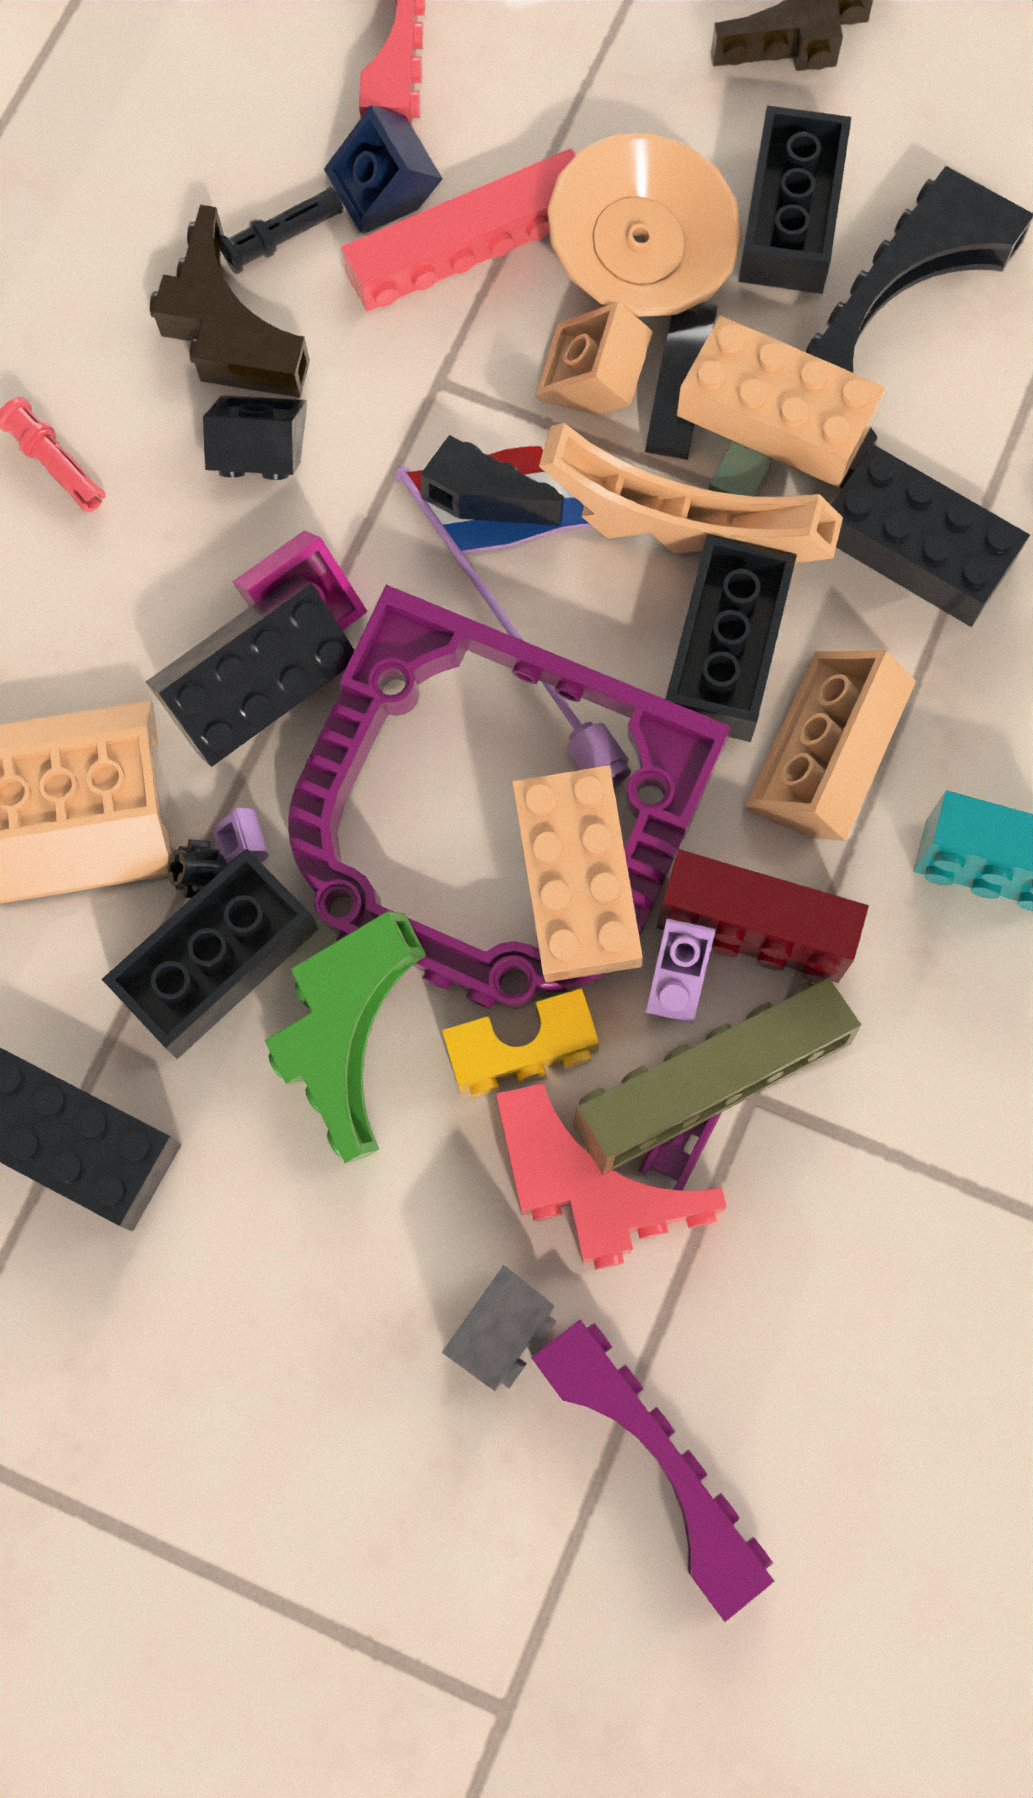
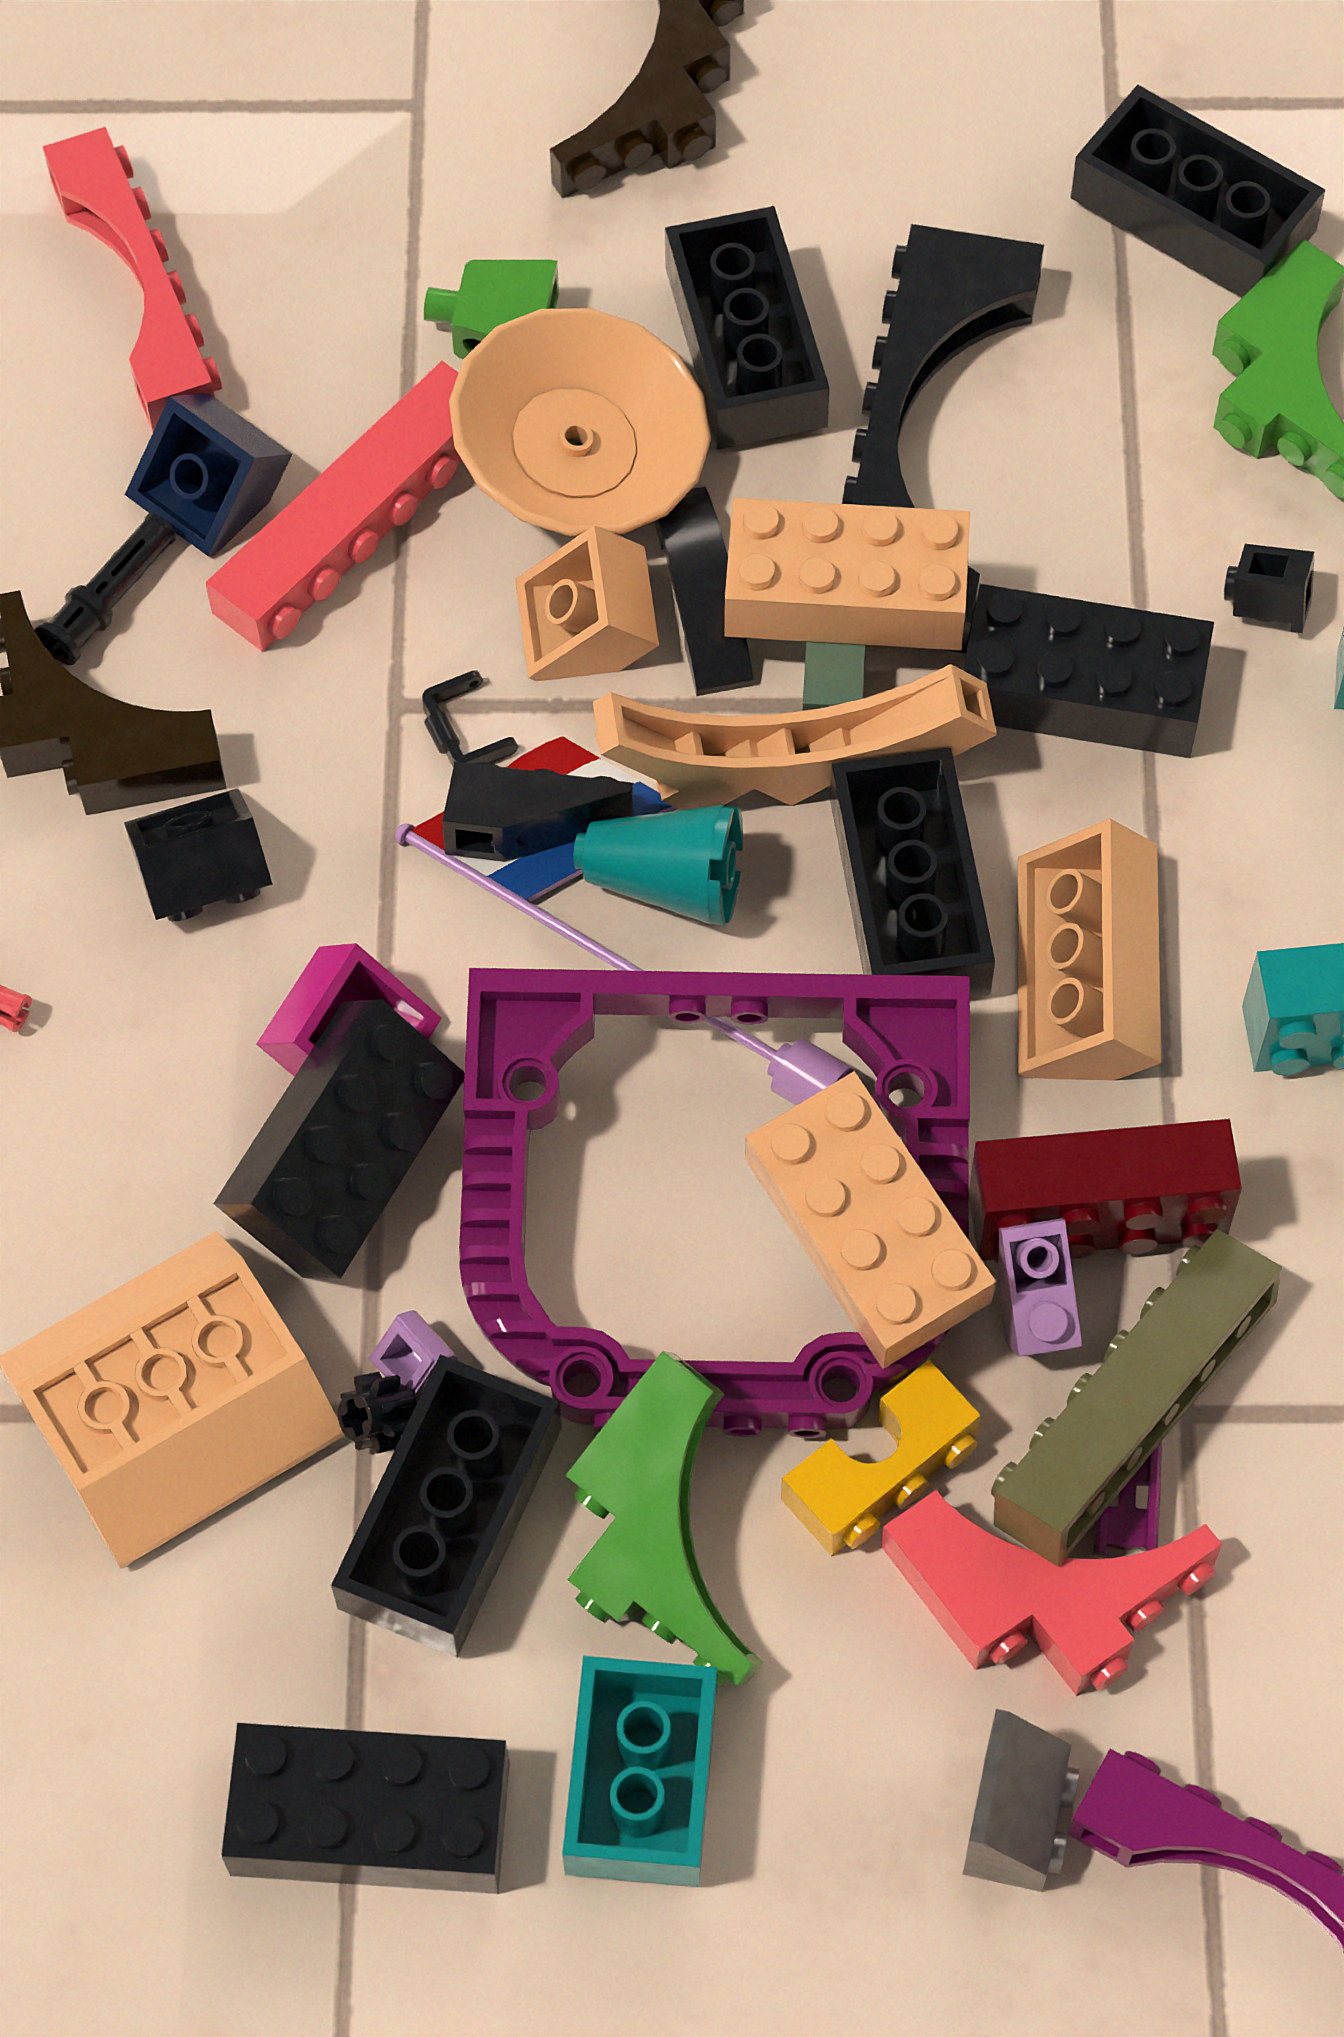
camera: 25 degrees left, 10 degrees down
(254, 1194) = (640, 1771): none -> teal brick
(459, 410) = (442, 730): none -> black piece
(568, 561) = (668, 859): none -> teal cone
(630, 112) = (491, 296): none -> bright green torso

